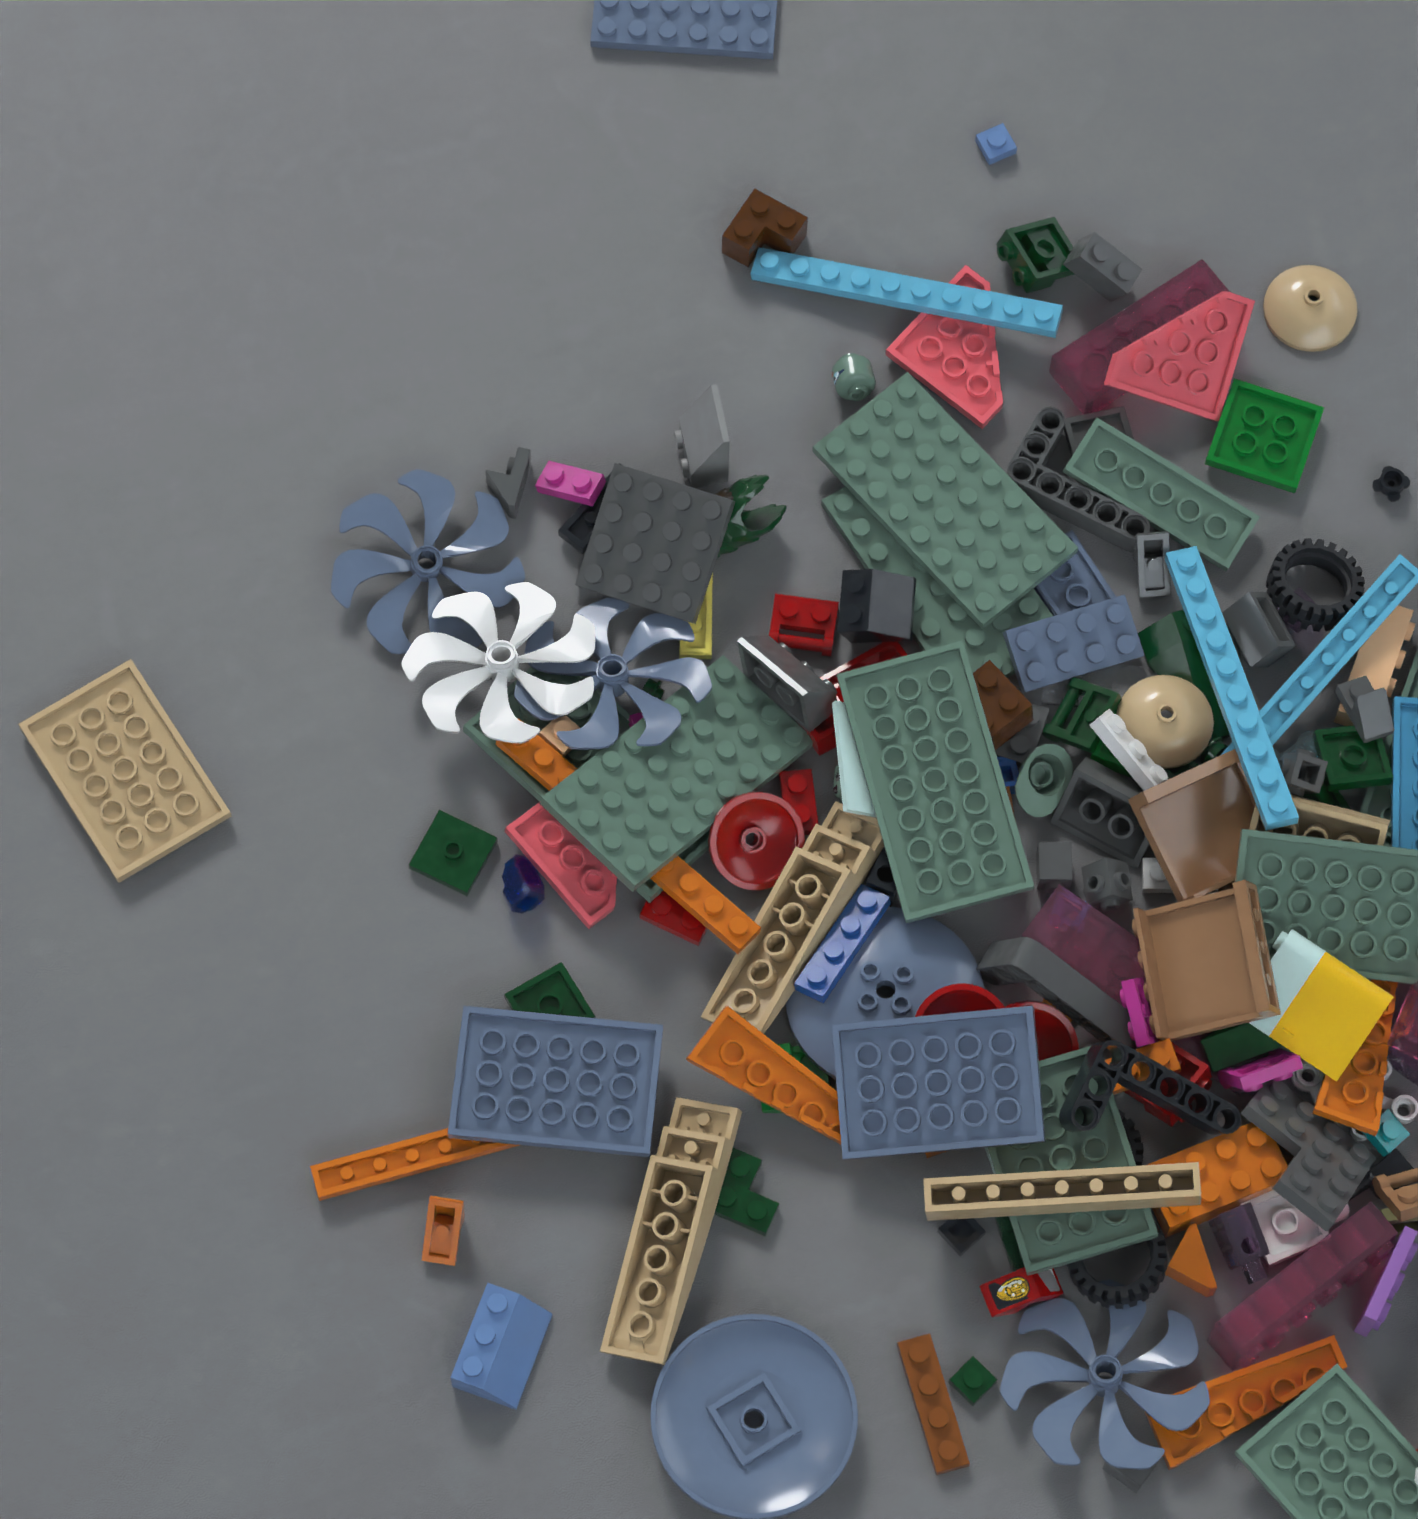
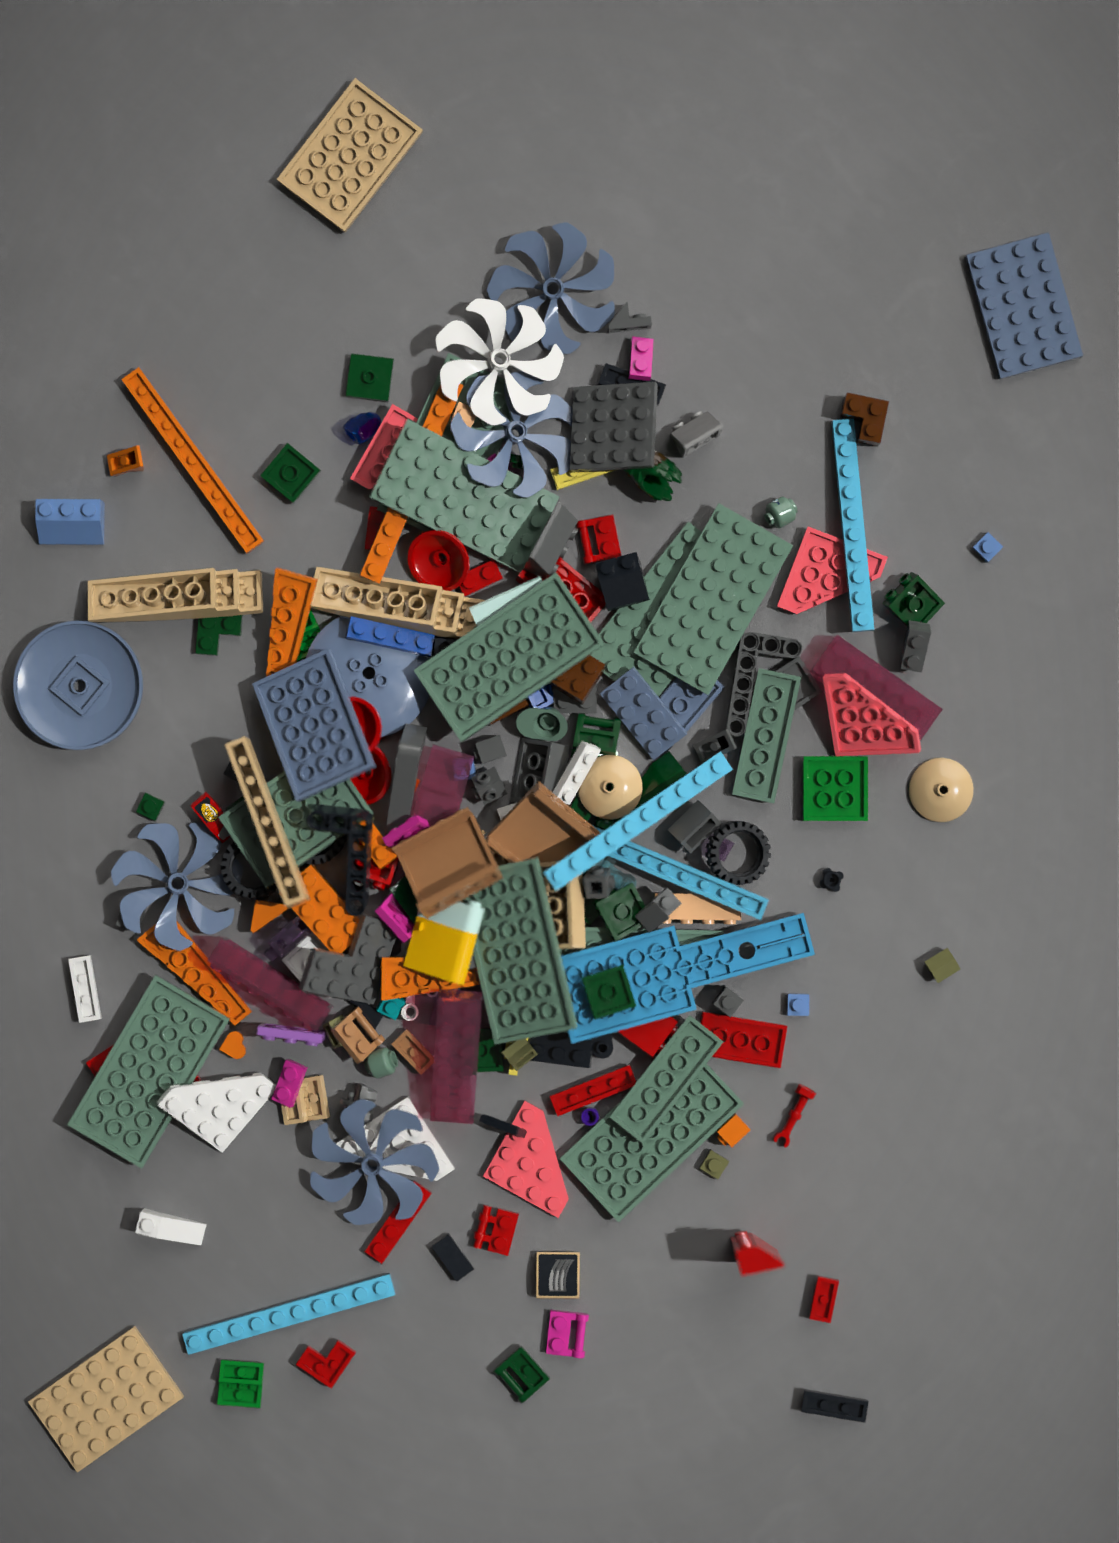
camera: 70 degrees right, 20 degrees up
(556, 1081) = (240, 494): sand blue plate -> none
(933, 1404) = (128, 787): dark orange plate -> none
(1376, 1382) = (234, 1045): none -> orange tile

